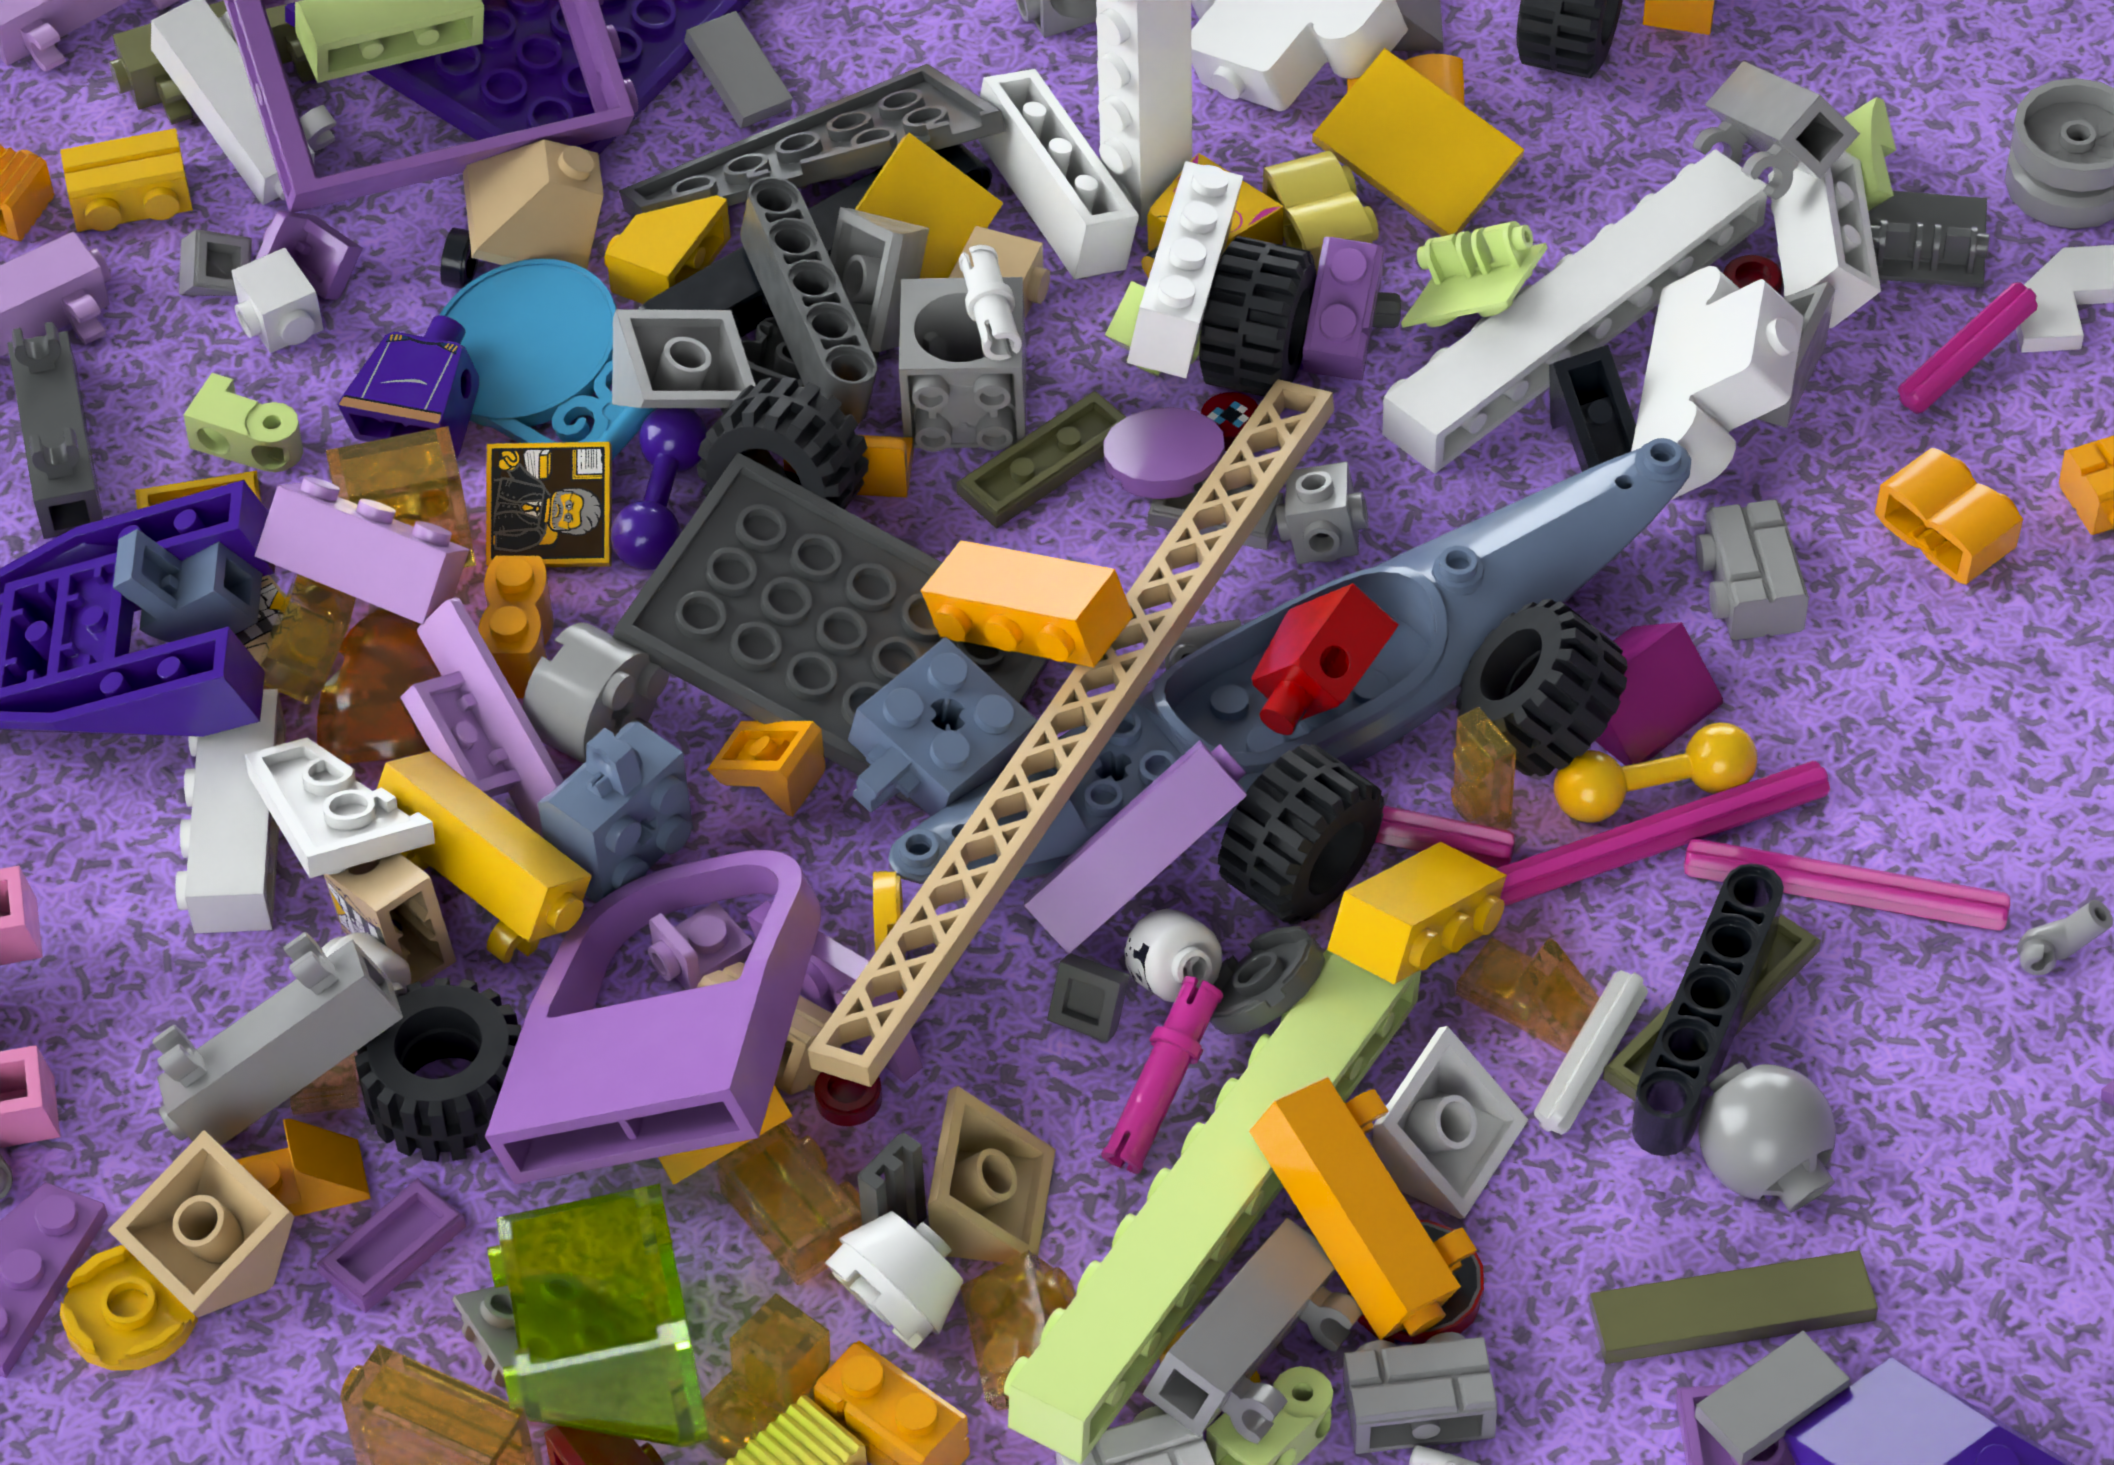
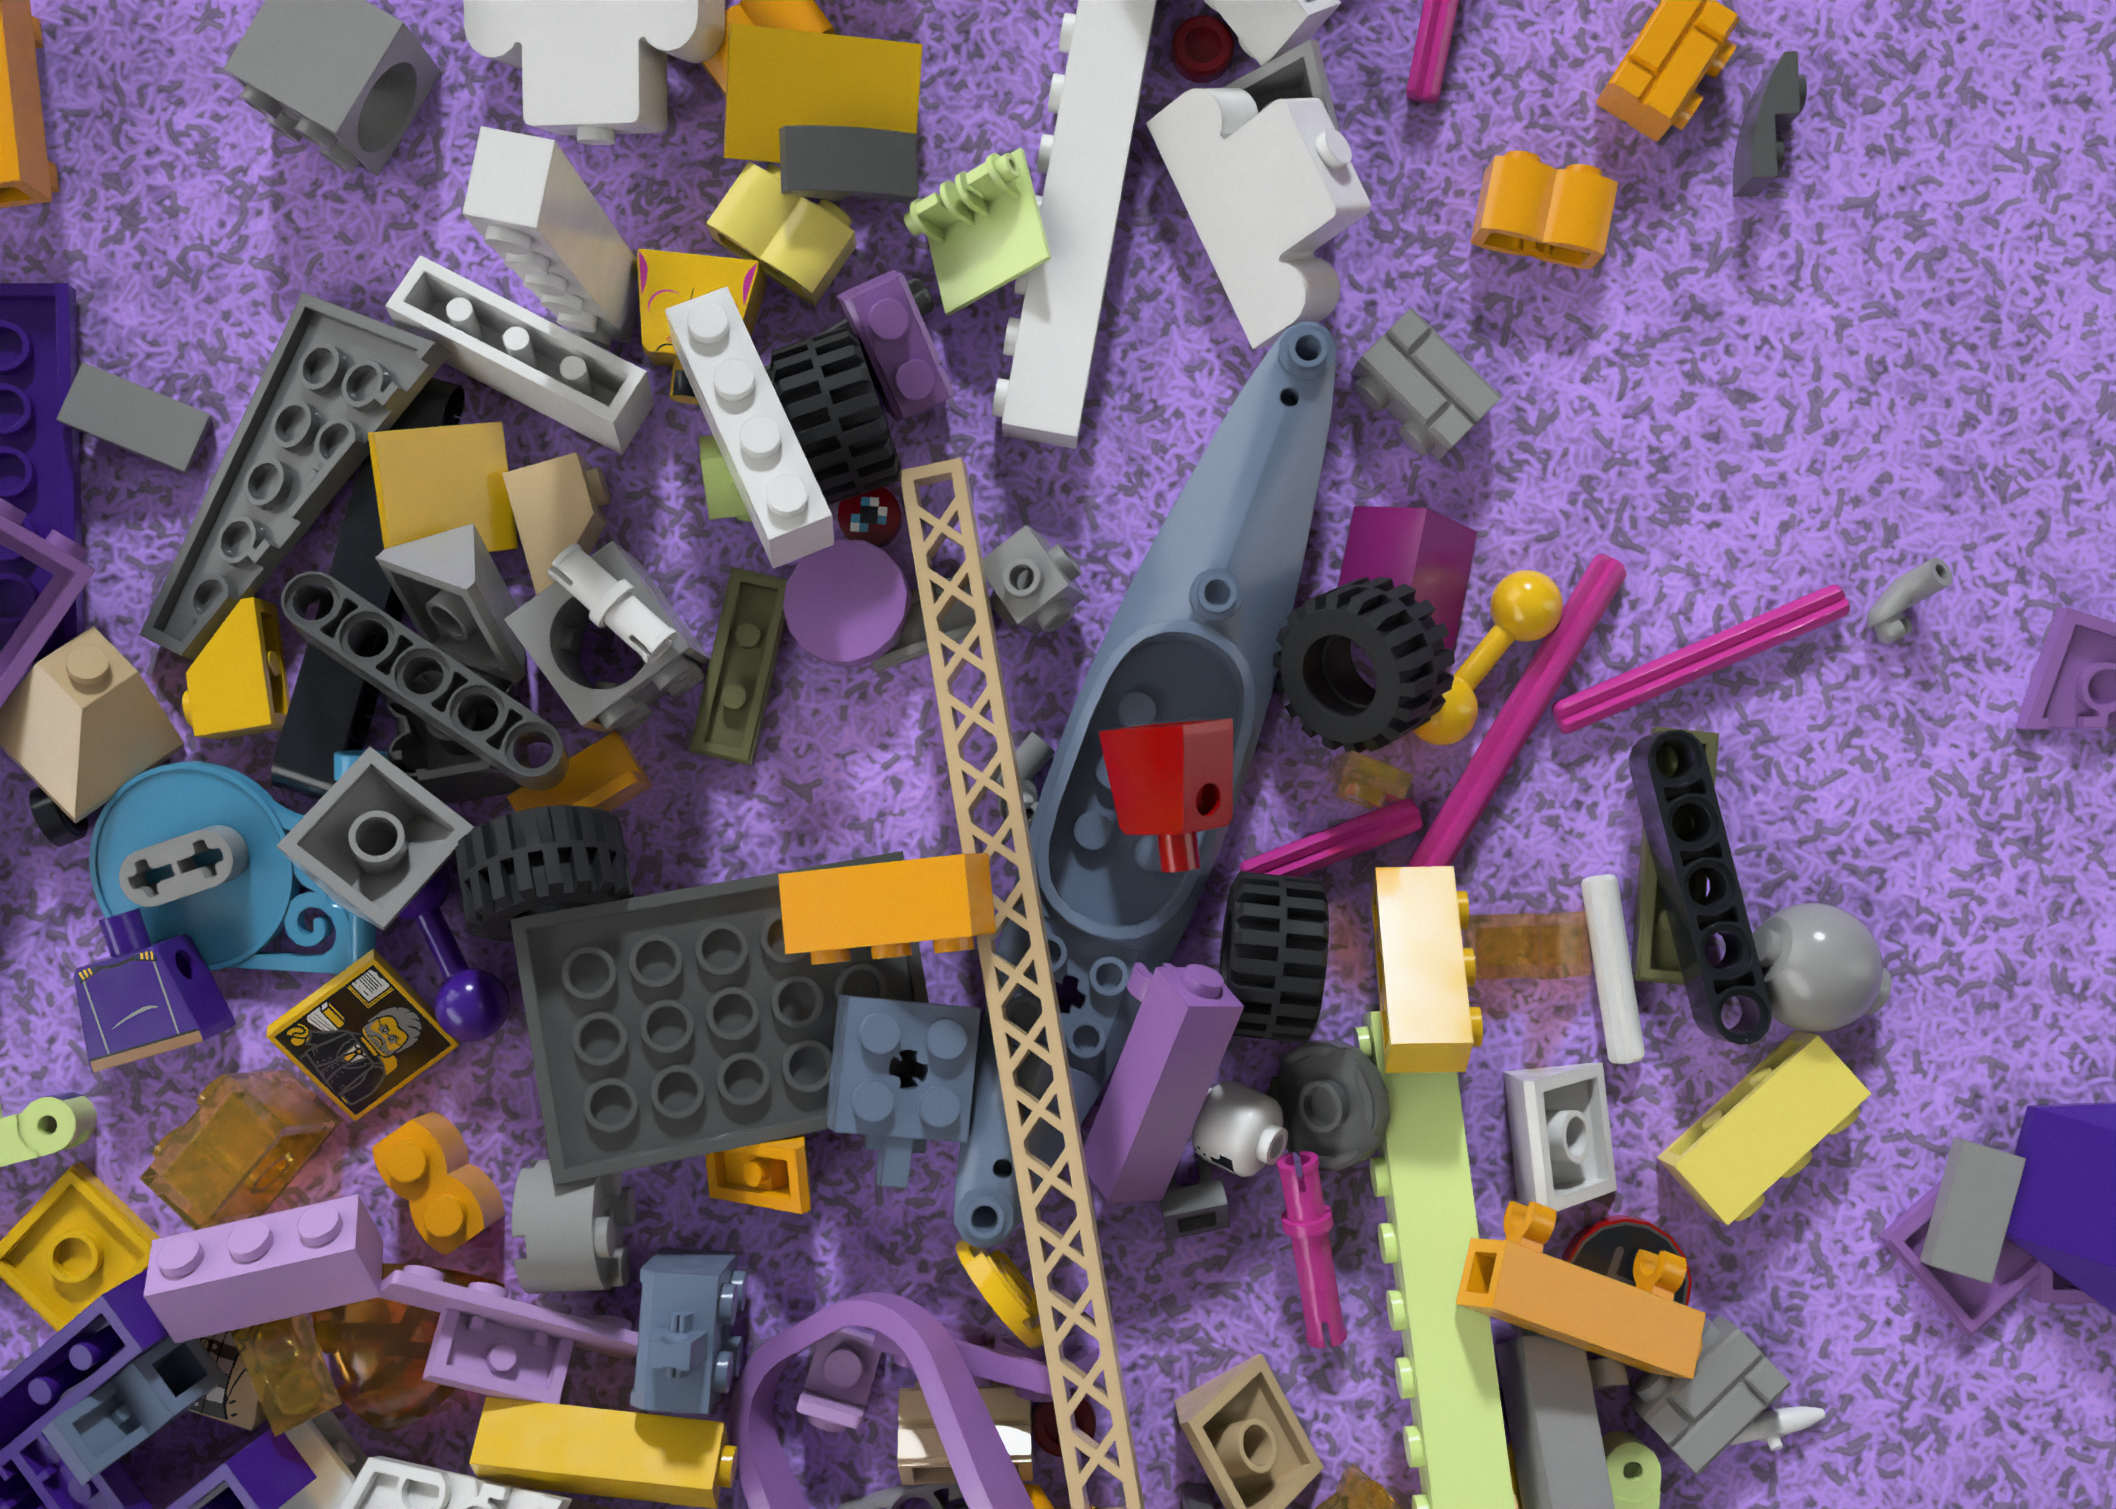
camera: 40 degrees left, 35 degrees up
(520, 330) = (180, 854): none -> light grey beam
(1398, 176) = (848, 162): none -> dark grey slope
(1592, 405) = (1188, 310): black slope -> none
(1630, 1228) = (1765, 1127): none -> light yellow brick
(1732, 1307) = (1901, 1105): olive tile -> none

